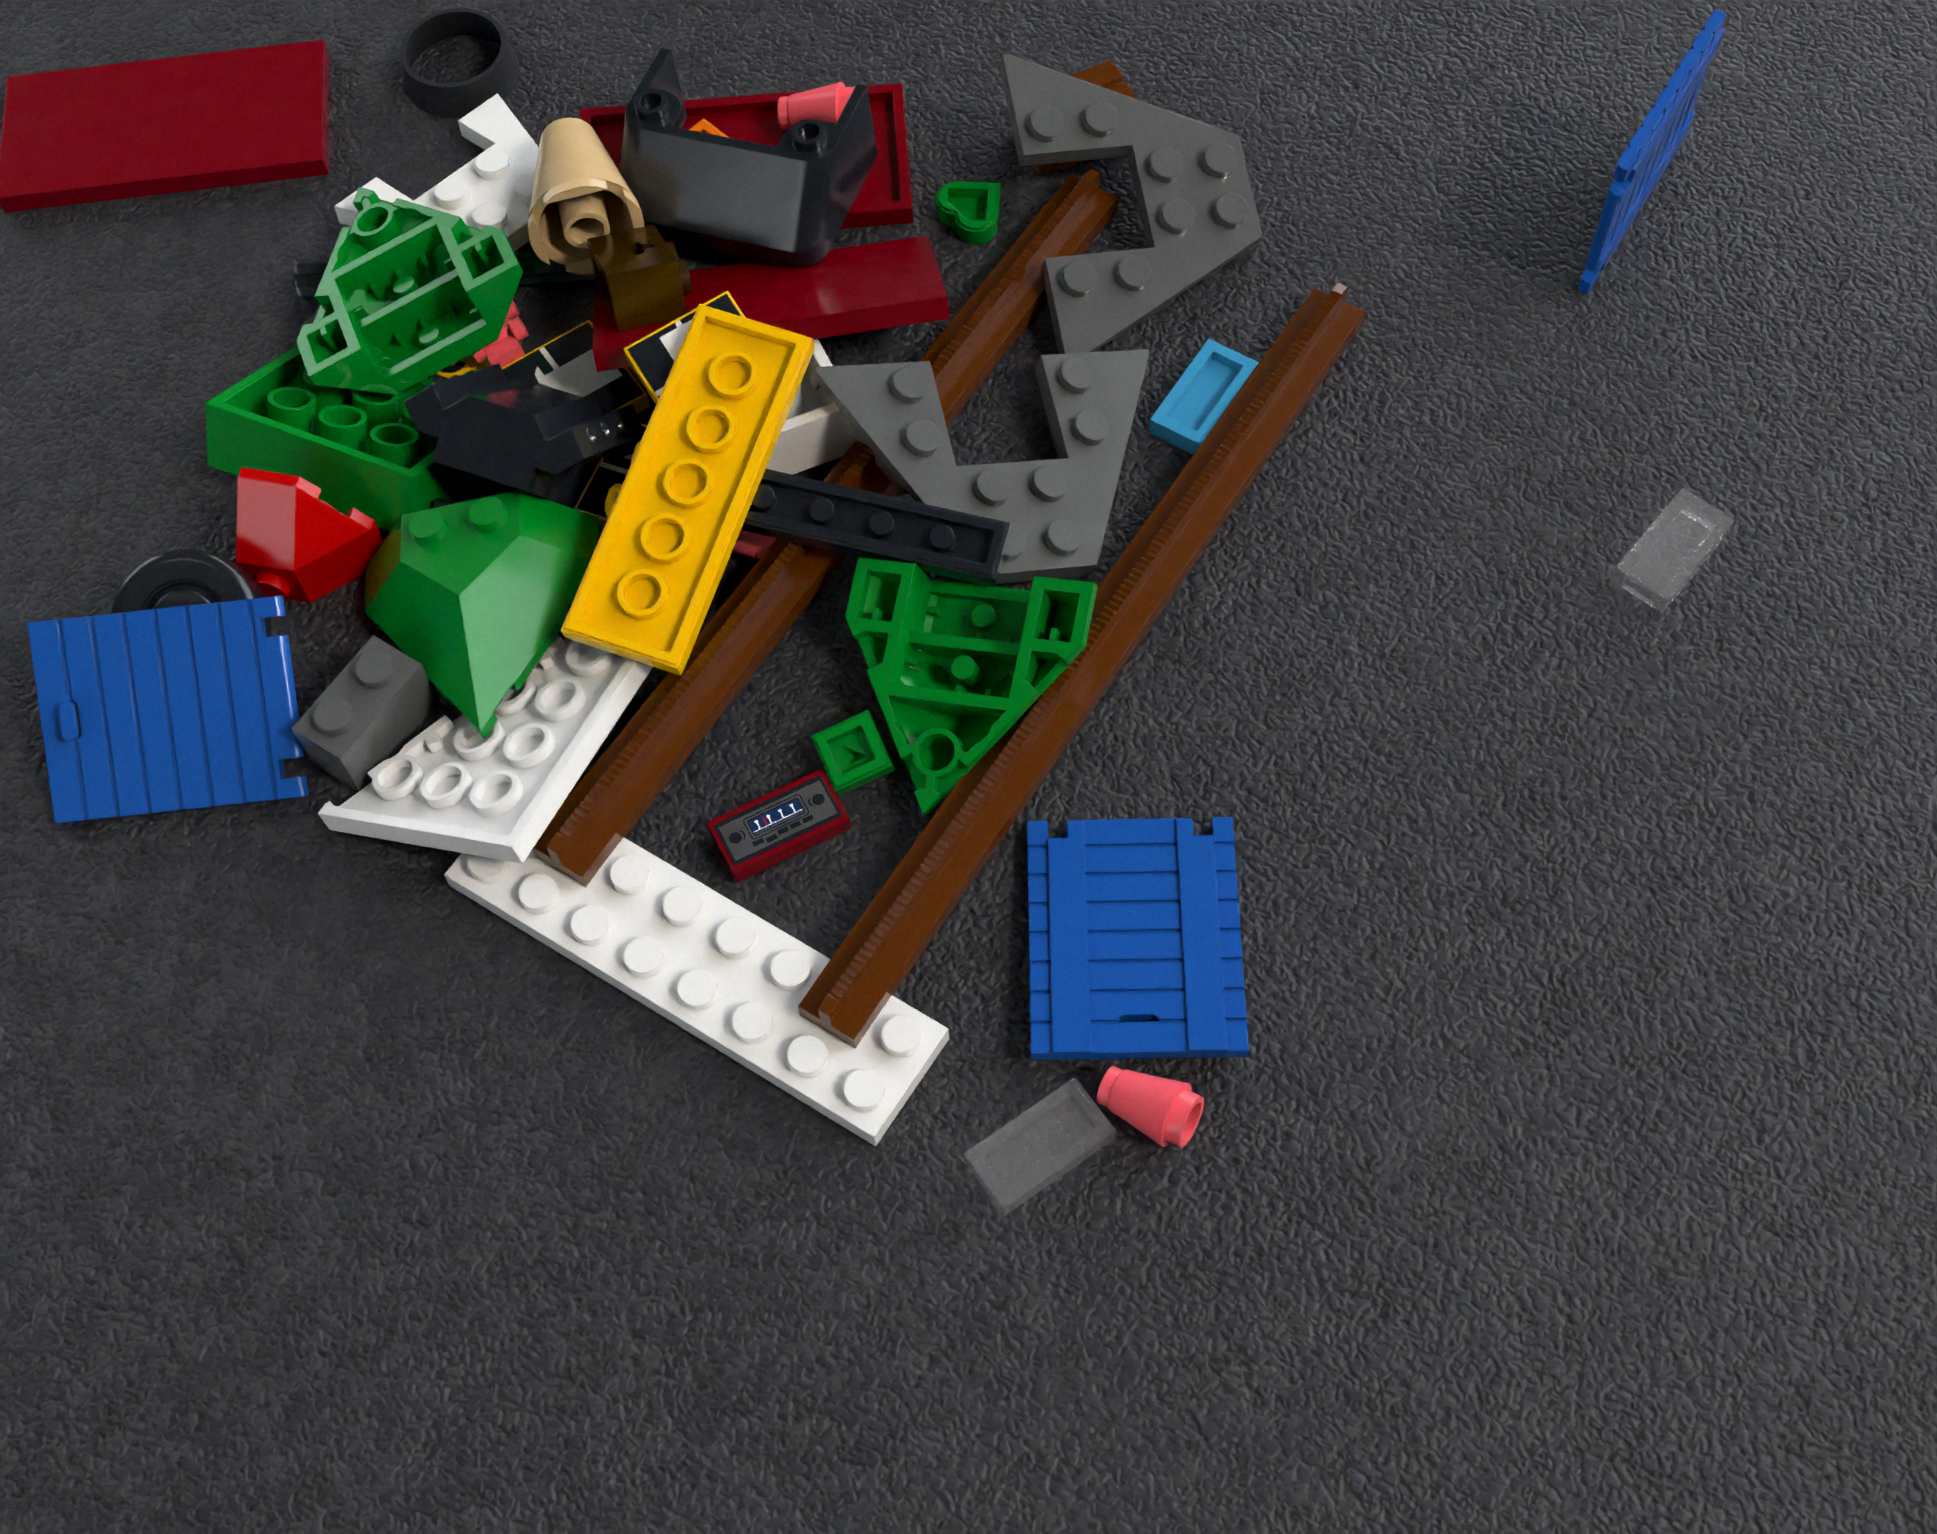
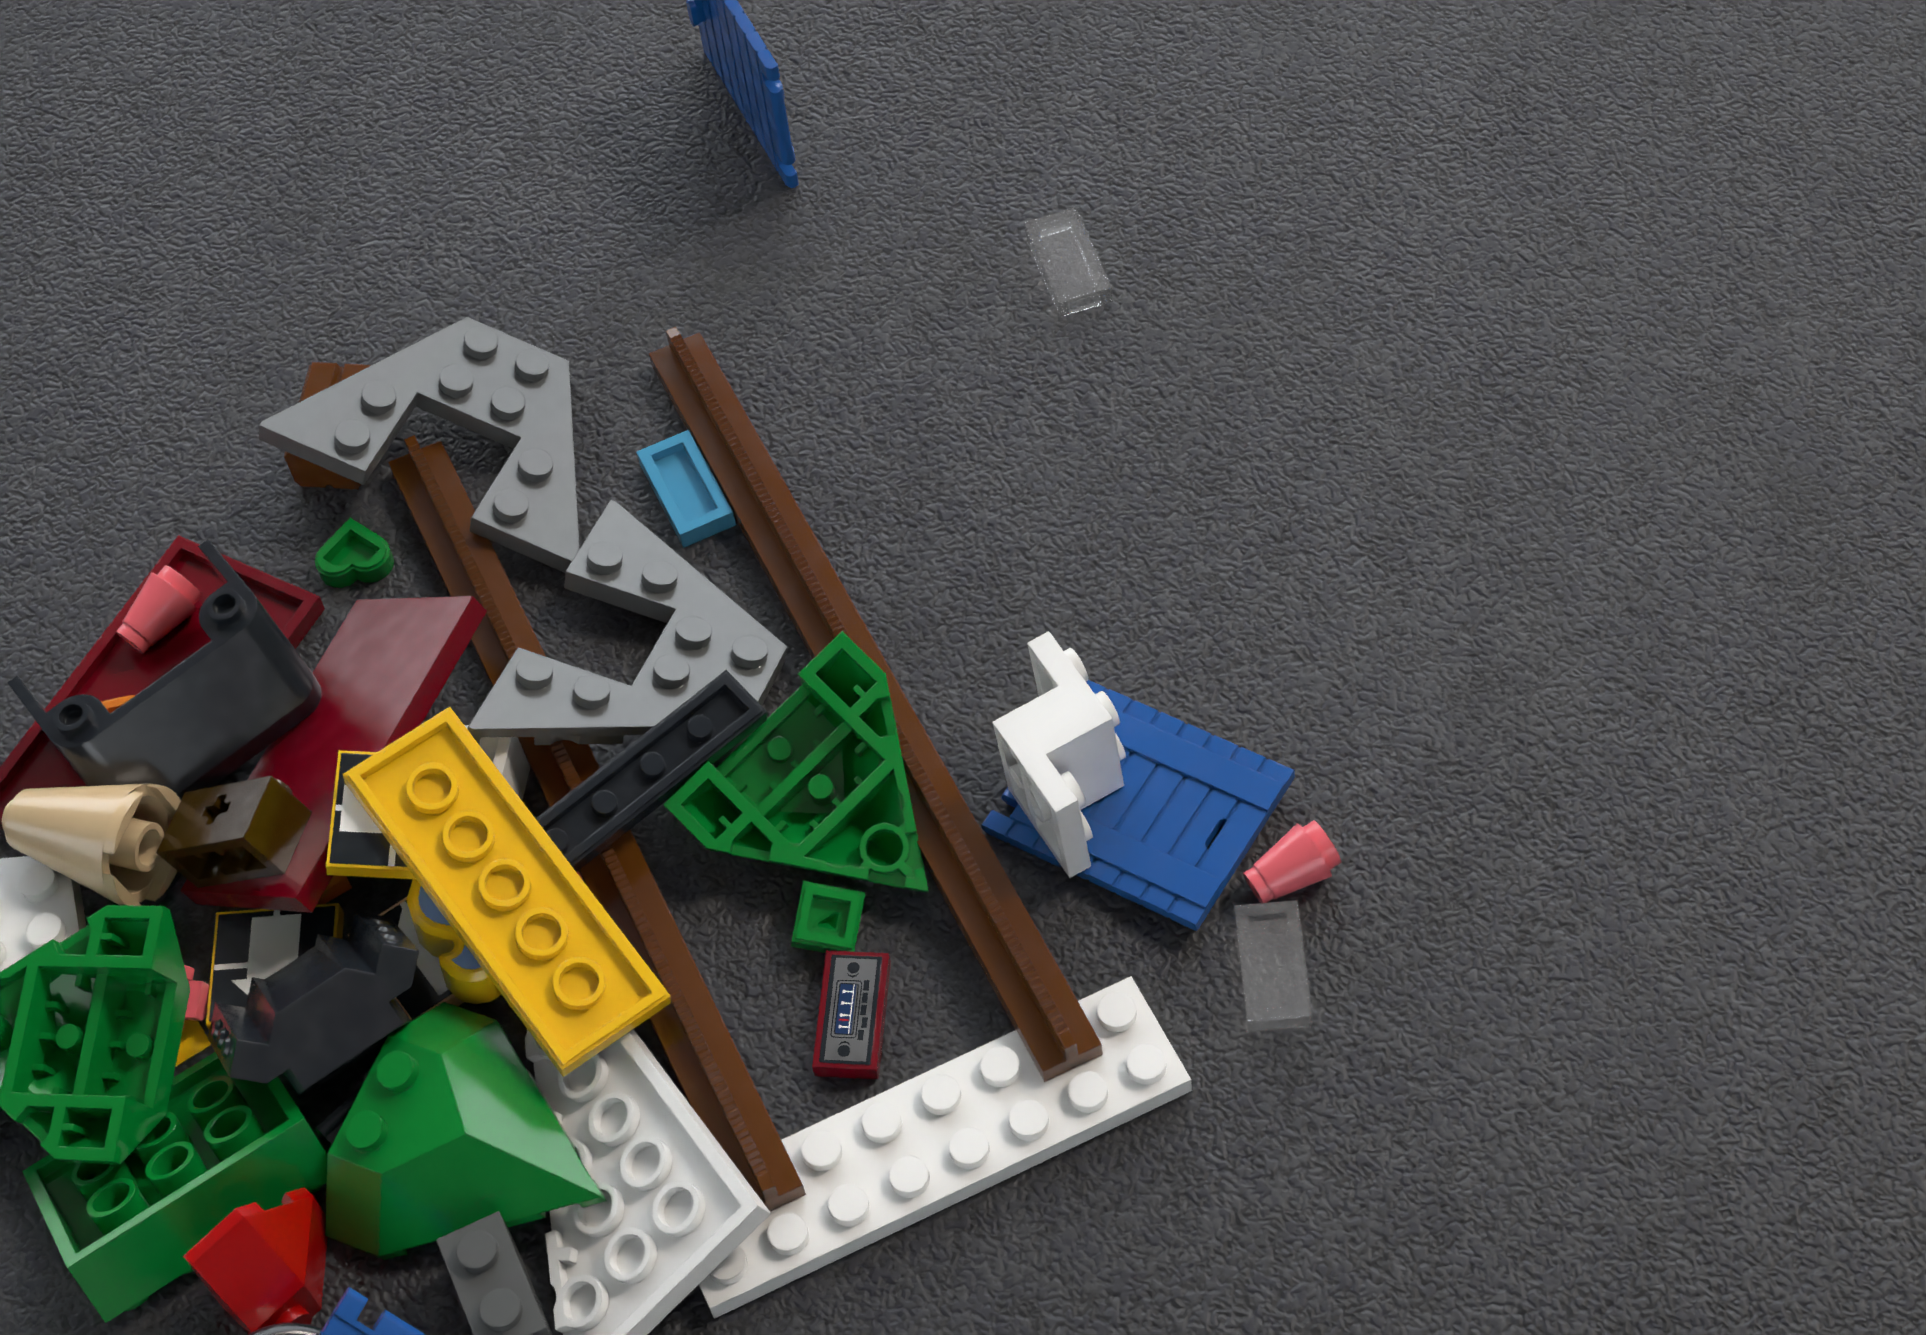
camera: 55 degrees left, 5 degrees down
(1108, 834) = (1061, 752): none -> white bracket

